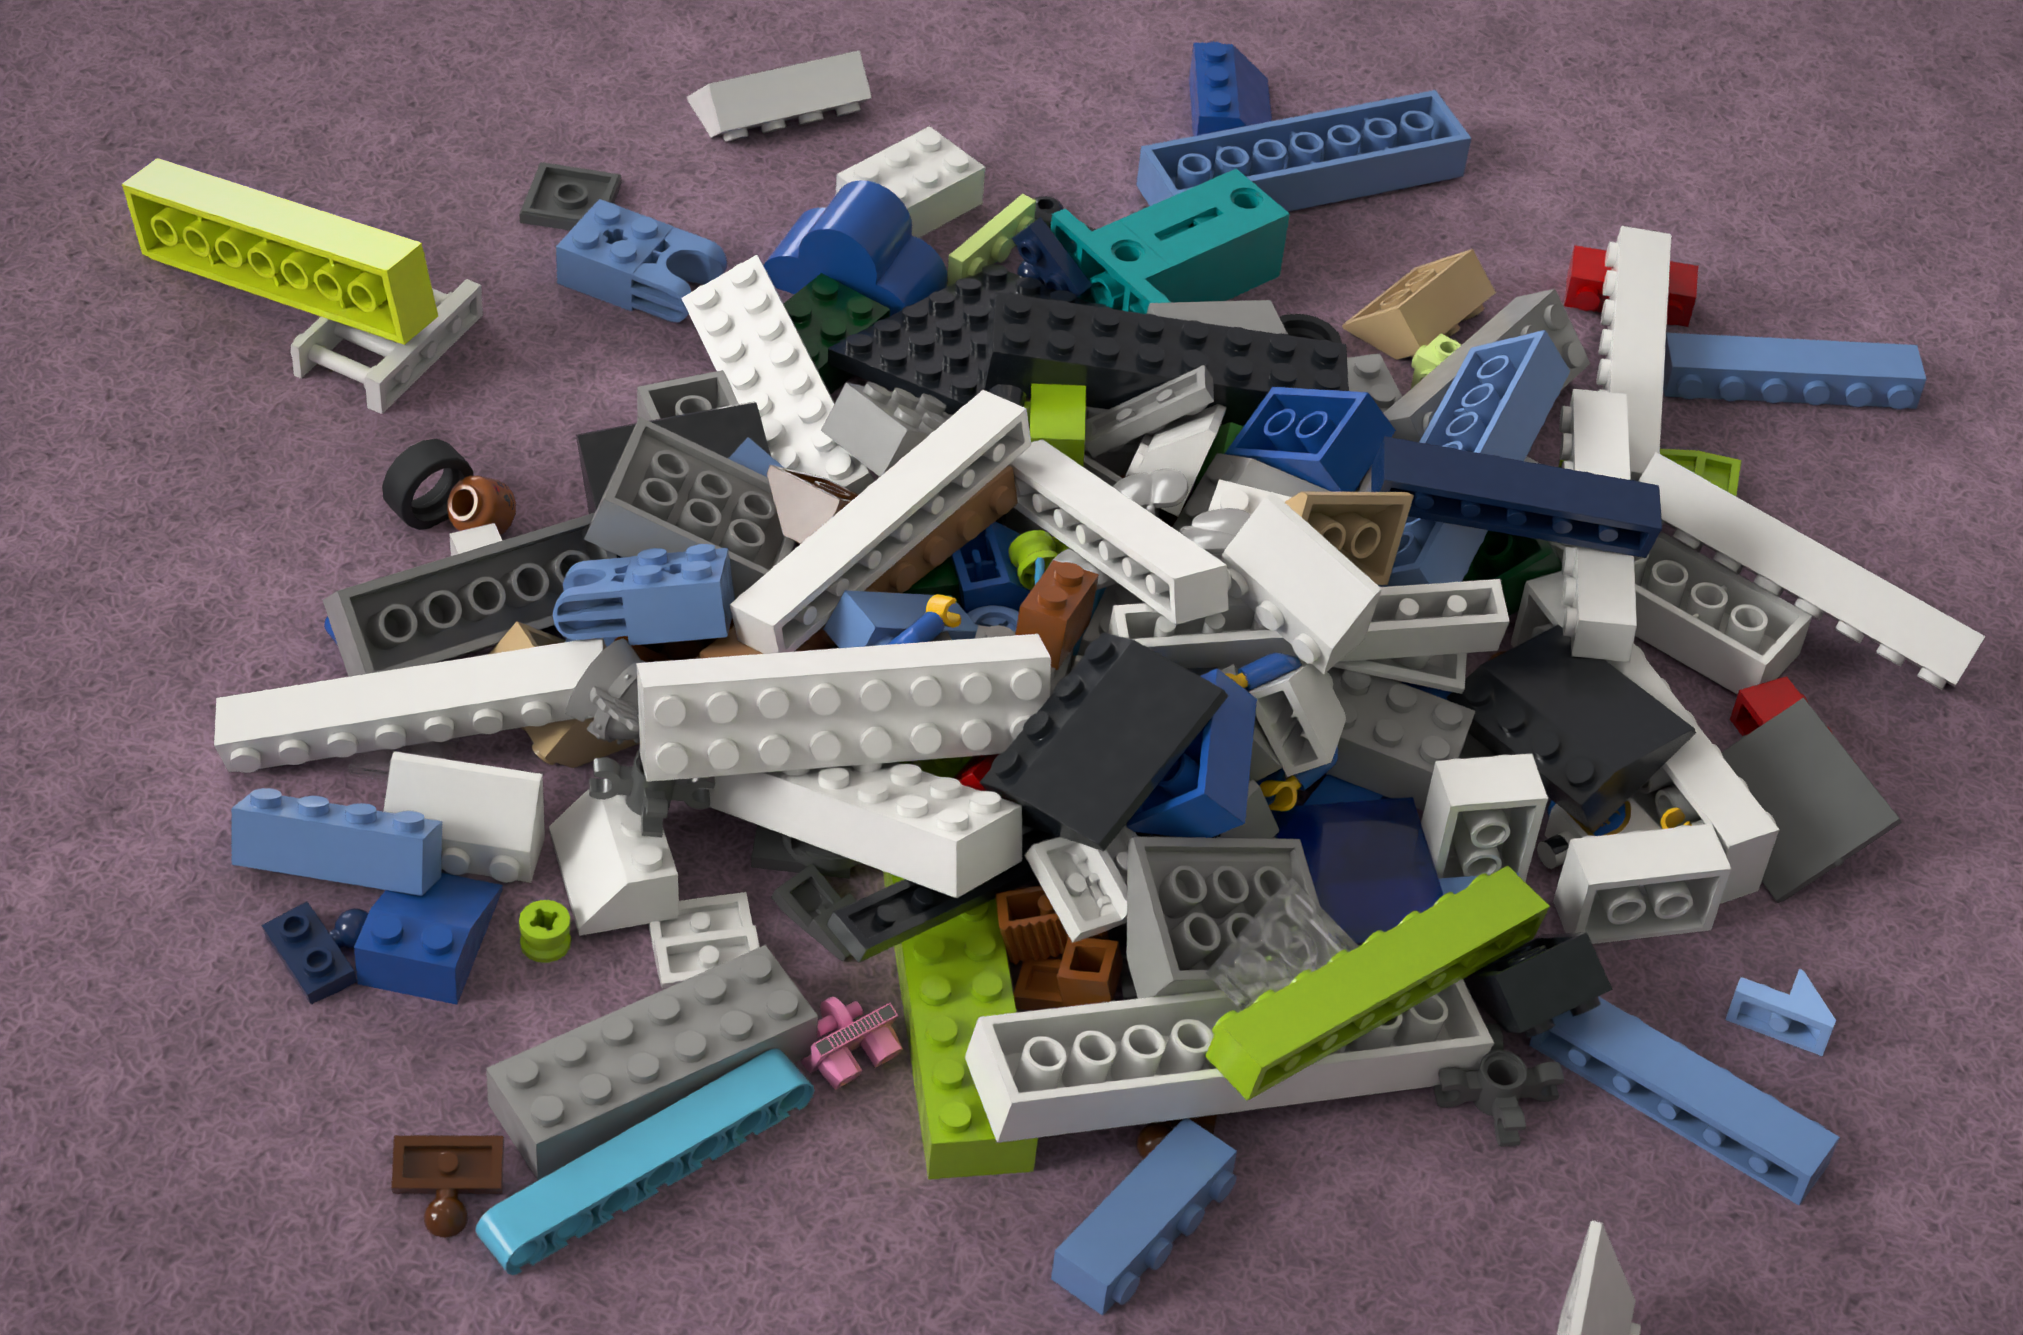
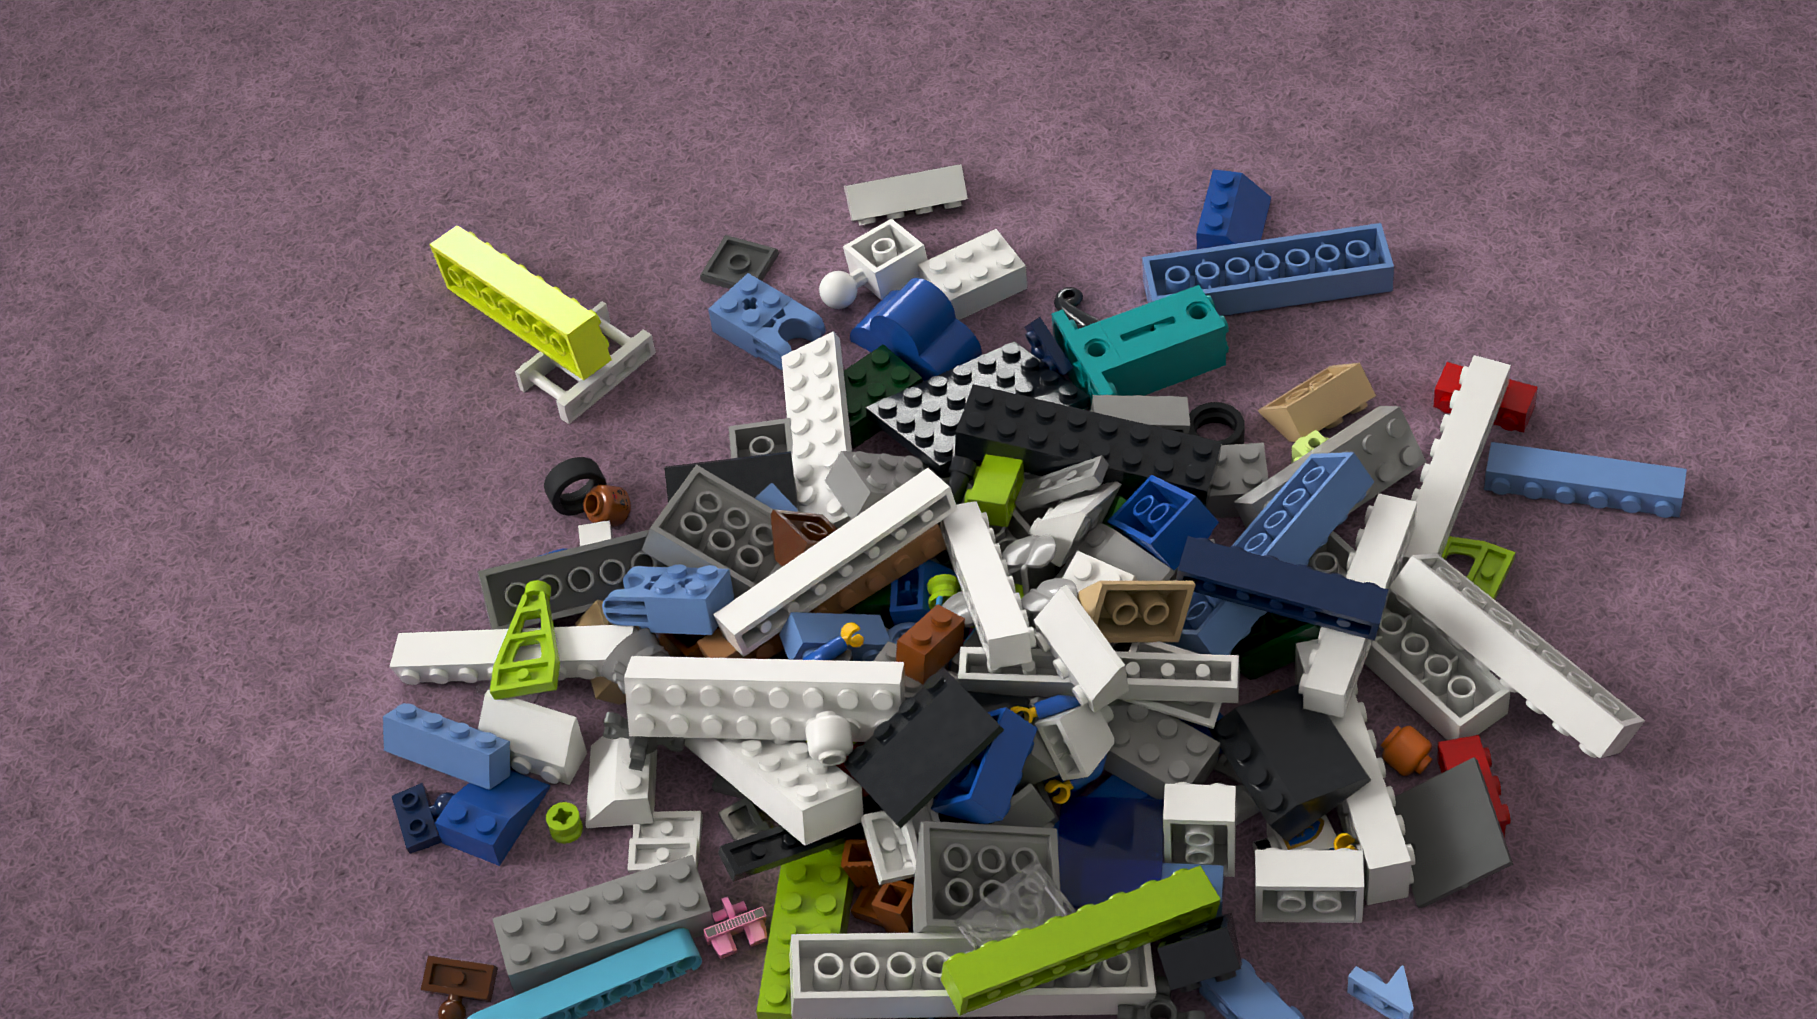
camera: 25 degrees right, 5 degrees up
(453, 723) = (531, 675): none -> lime plate
(776, 176) = (878, 260): none -> white brick
(961, 745) = (829, 738): none -> white head
(992, 241) = (1012, 327): yellowish green plate -> none
(1704, 702) = (1407, 750): none -> orange head

